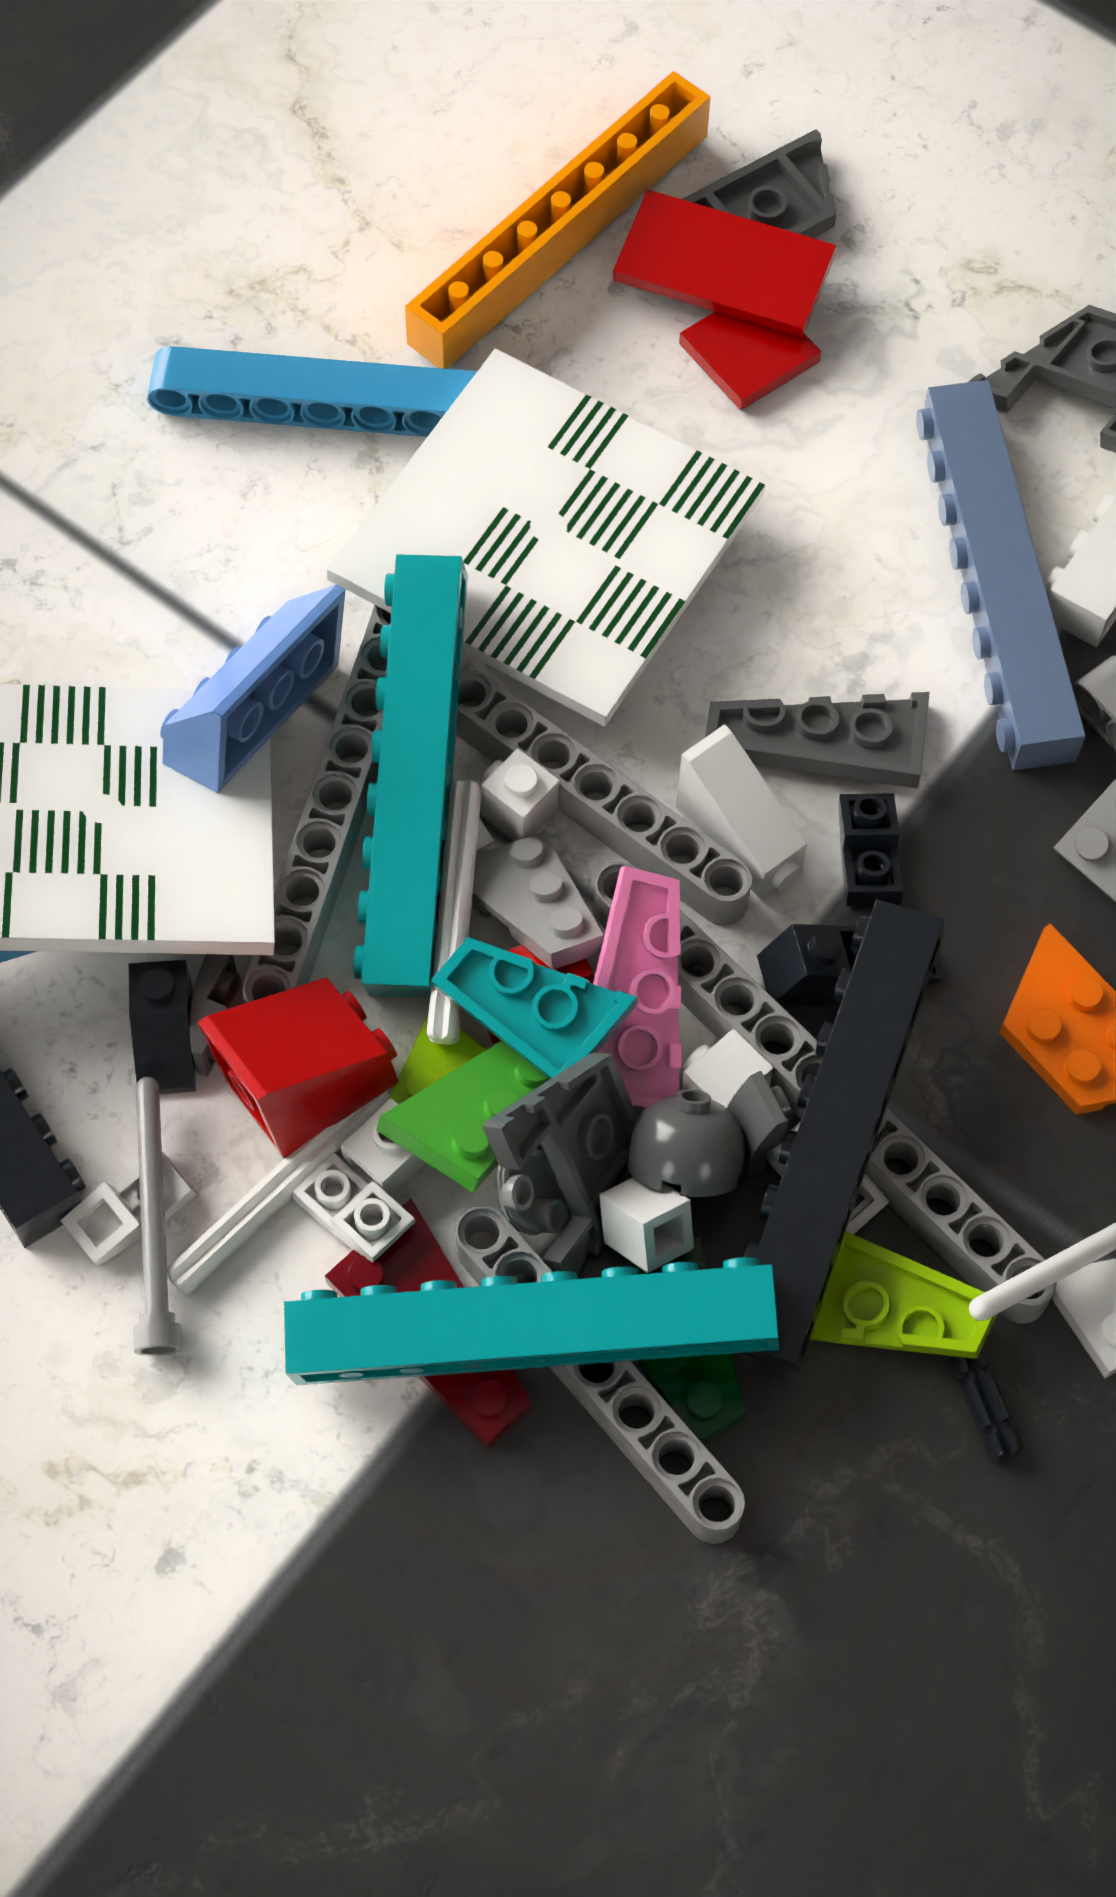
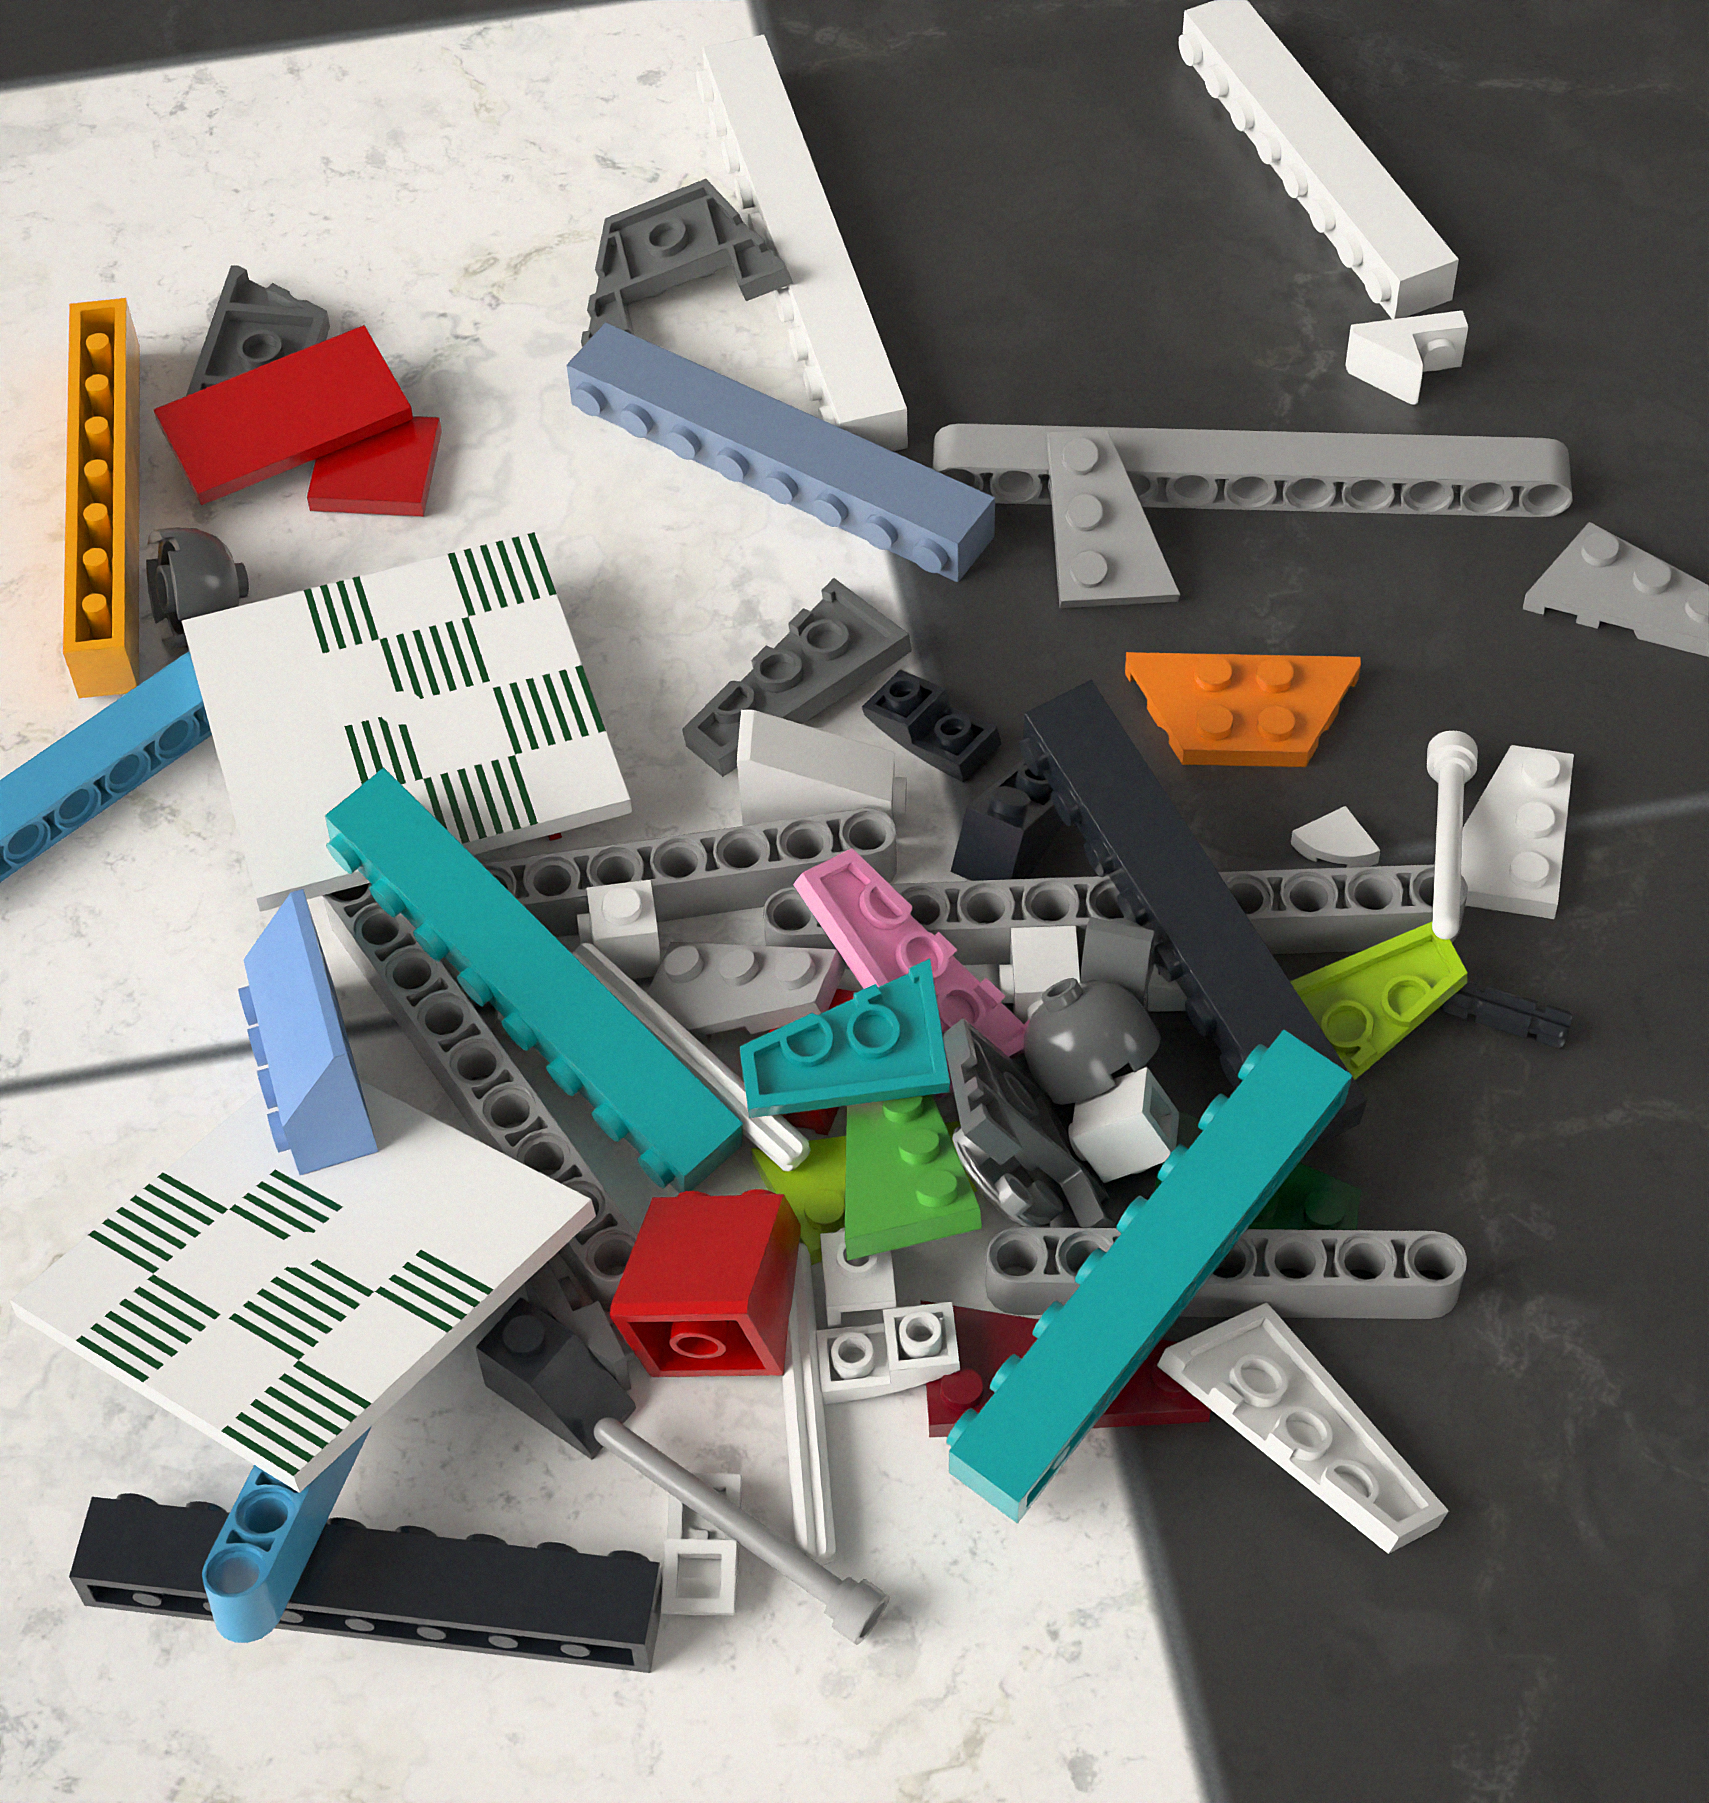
camera: 45 degrees left, 10 degrees down
(527, 1501) = (1301, 1418): none -> white wing
(545, 328) = (191, 578): none -> dark grey cylinder
(1025, 1182) = (1336, 840): none -> white tile

